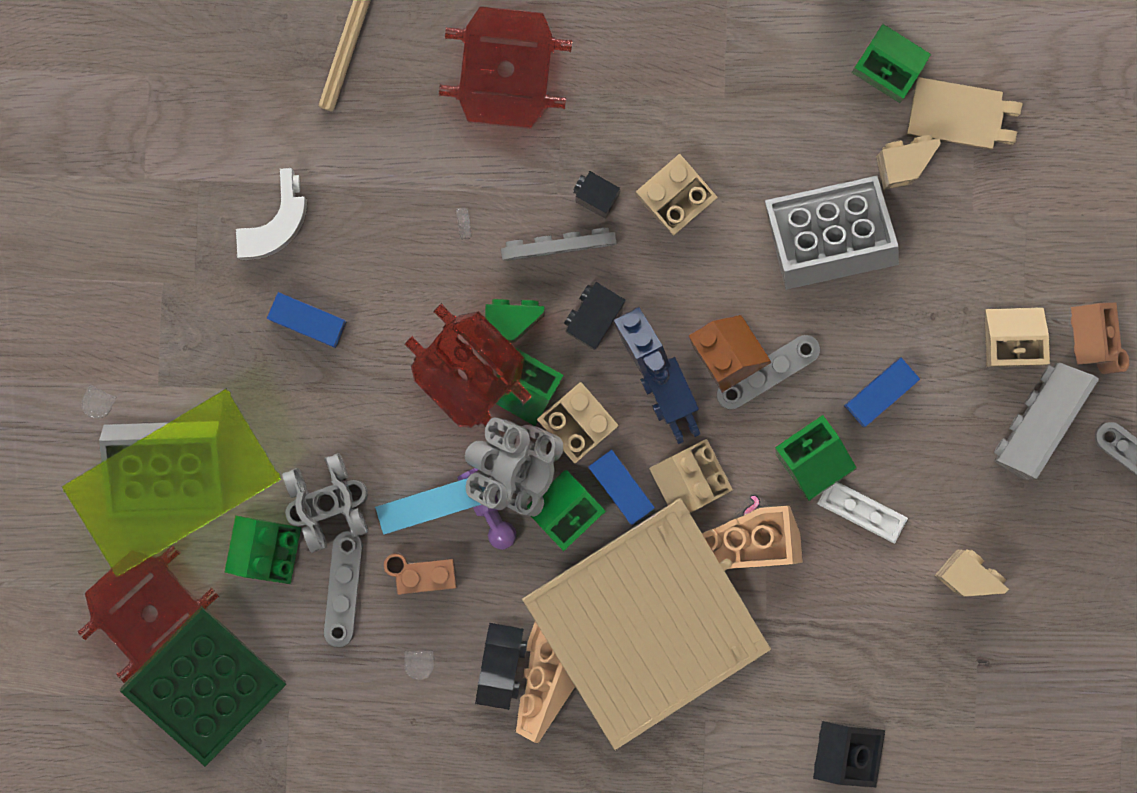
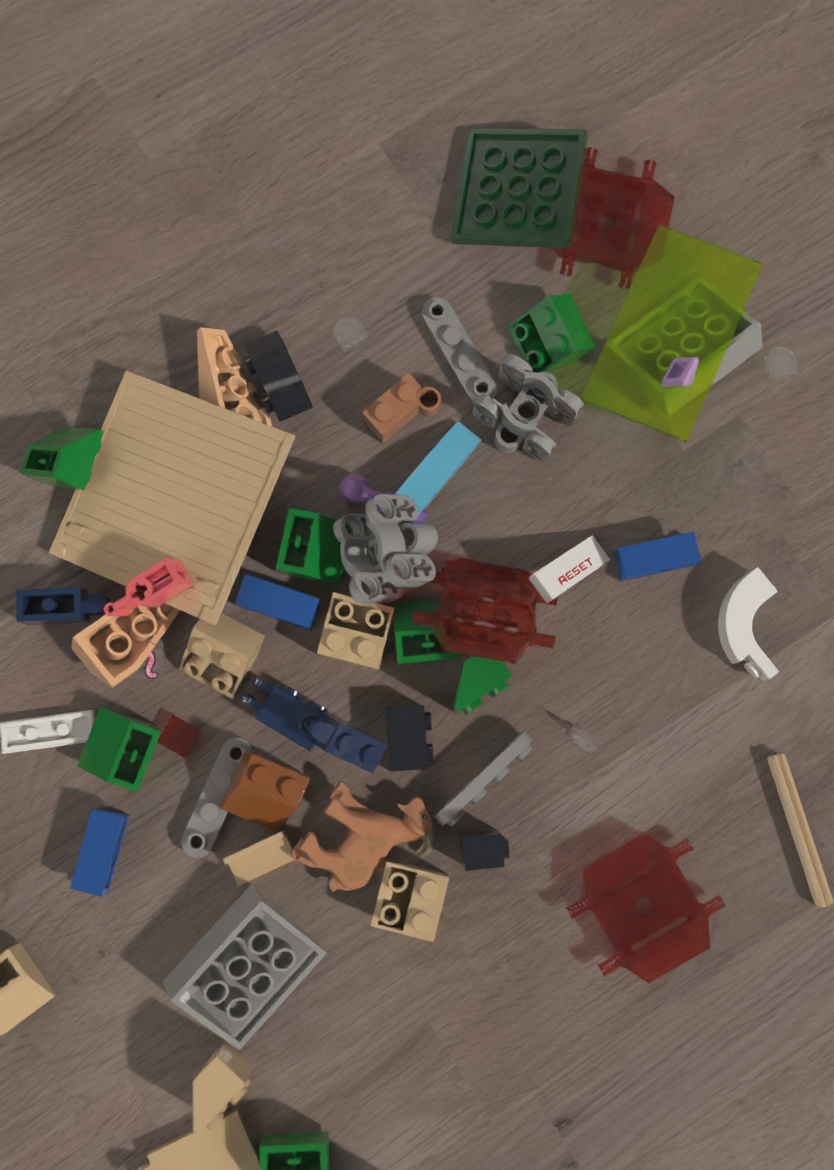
camera: 135 degrees right, 5 degrees down
(193, 443) = (680, 372): none -> lavender slope
(381, 356) = (569, 569): none -> white tile
(677, 261) = (366, 841): none -> nougat animal
(702, 558) = (152, 587): none -> coral piece
(708, 714) = (63, 457): none -> green slope
(765, 304) = (260, 857): none -> tan panel
(765, 438) = (179, 736): none -> clear red tile
(788, 599) = (58, 605): none -> dark blue hinge

